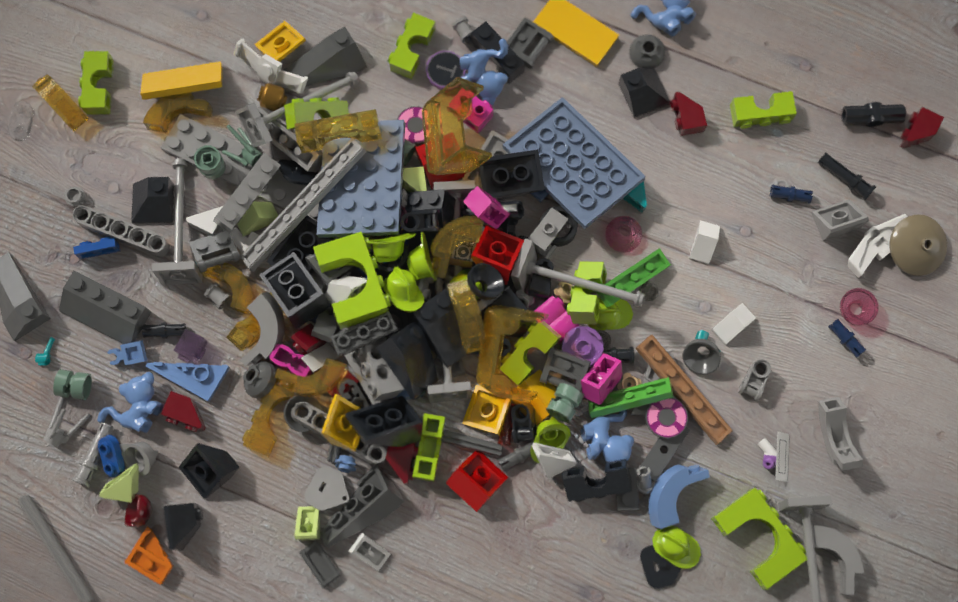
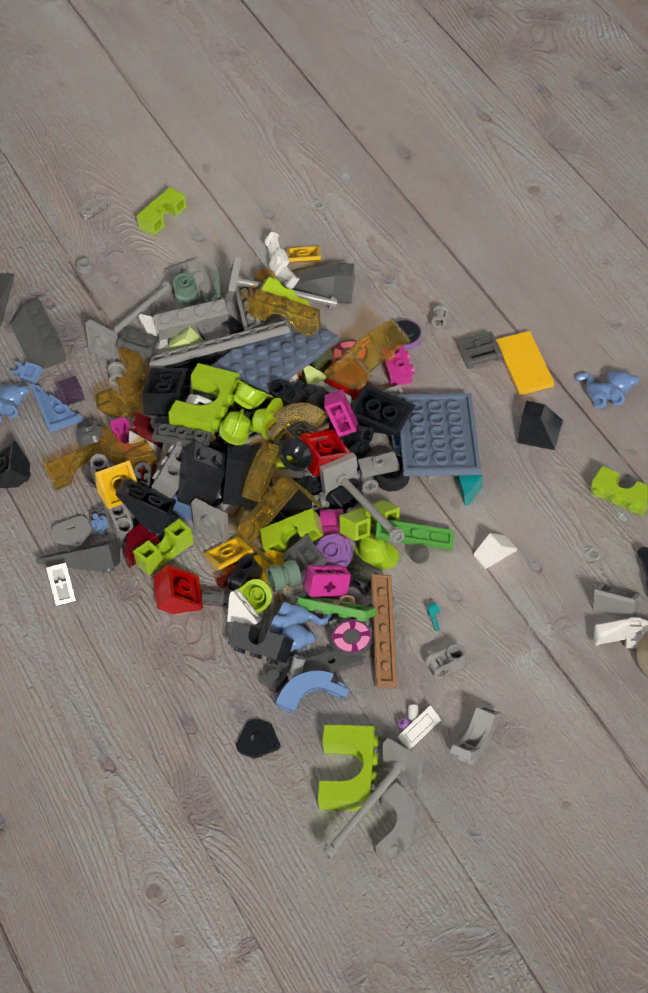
camera: 45 degrees right, 25 degrees down
(60, 102) = (127, 208): clear yellow arch -> none
(104, 246) = (68, 301): blue plate -> none
(112, 227) = (92, 298): light grey beam -> none
(153, 200) = (130, 295): black slope -> none
(163, 330) = (61, 372): black pin -> none
(169, 107) = (190, 249): clear yellow arch -> none
(181, 80) = (216, 238): yellow tile -> none
(183, 410) = (27, 424): dark red slope -> none
(271, 324) = (128, 405): light grey arch -> none
(307, 523) = (36, 543): yellowish green slope -> none
(320, 563) = (23, 574): dark grey tile -> none
(417, 30) = (403, 298): lime arch -> none
(472, 443) = (198, 568): dark grey axle -> none
(476, 63) = (424, 354): medium blue animal -> none
(487, 38) = (450, 342): black arch -> none
(619, 242) = (437, 514): clear pink piece -> none
(647, 59) = (567, 411): dark grey piece -> none
(677, 547) = (281, 734): lime piece -> none
(689, 115) = (559, 461): dark red slope -> none
(701, 363) = (413, 615): dark grey piece -> none
(733, 323) = (467, 615): white slope -> none
(791, 193) = (594, 560): dark blue pin -> none
(847, 338) = (548, 682): dark blue pin -> none
(865, 300) = (576, 657): clear pink piece -> none

